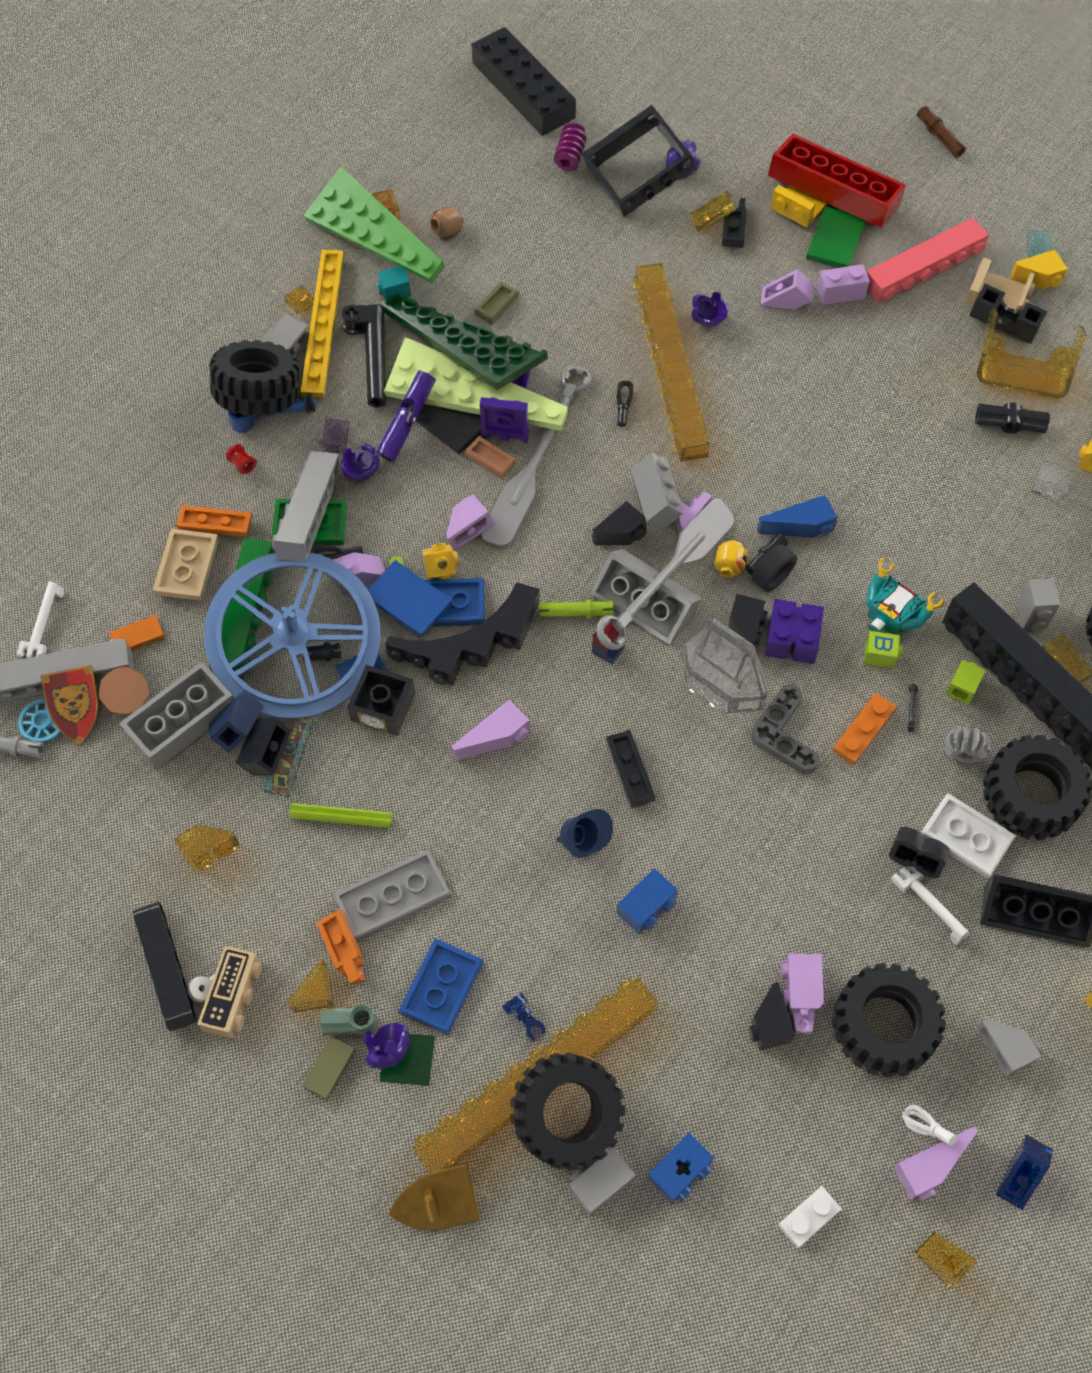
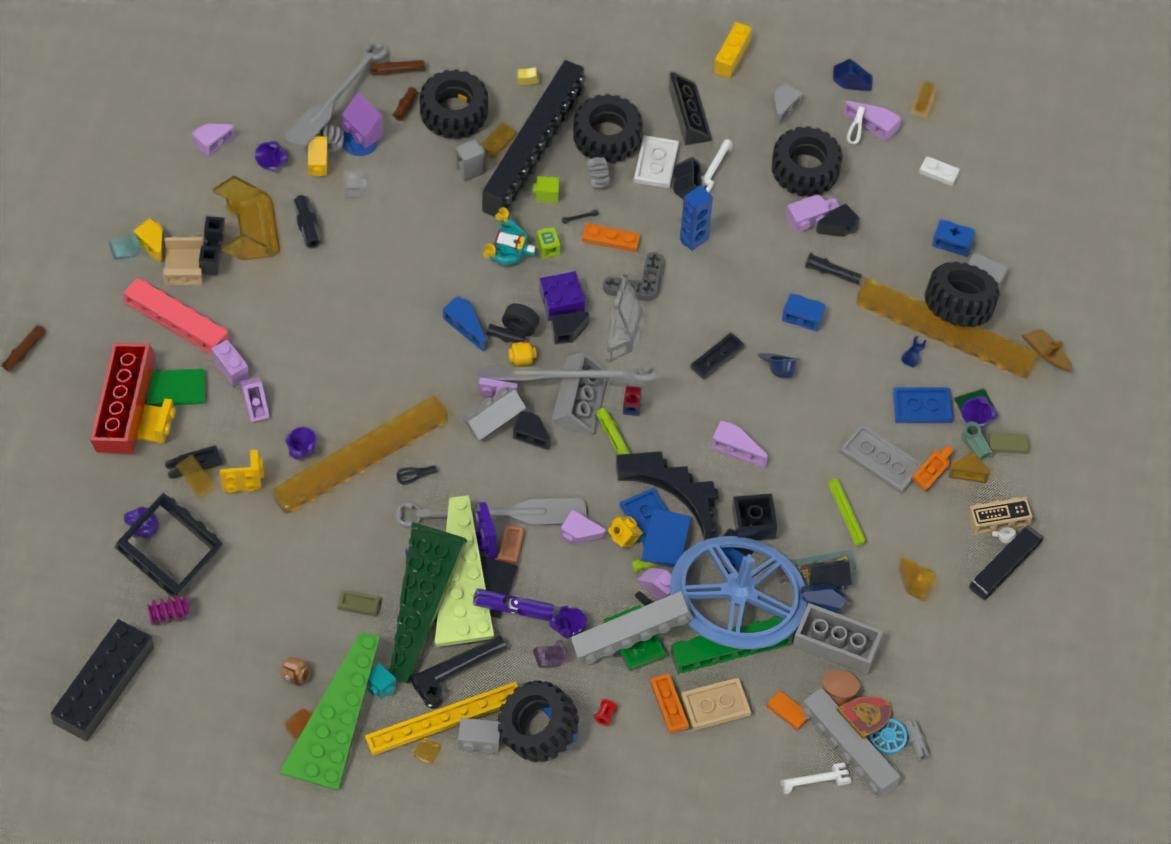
camera: 120 degrees left, 5 degrees down
(692, 251) = (244, 478): none -> yellow bracket
(708, 966) = (824, 265): none -> black pin
(833, 807) = (696, 218): none -> blue brick

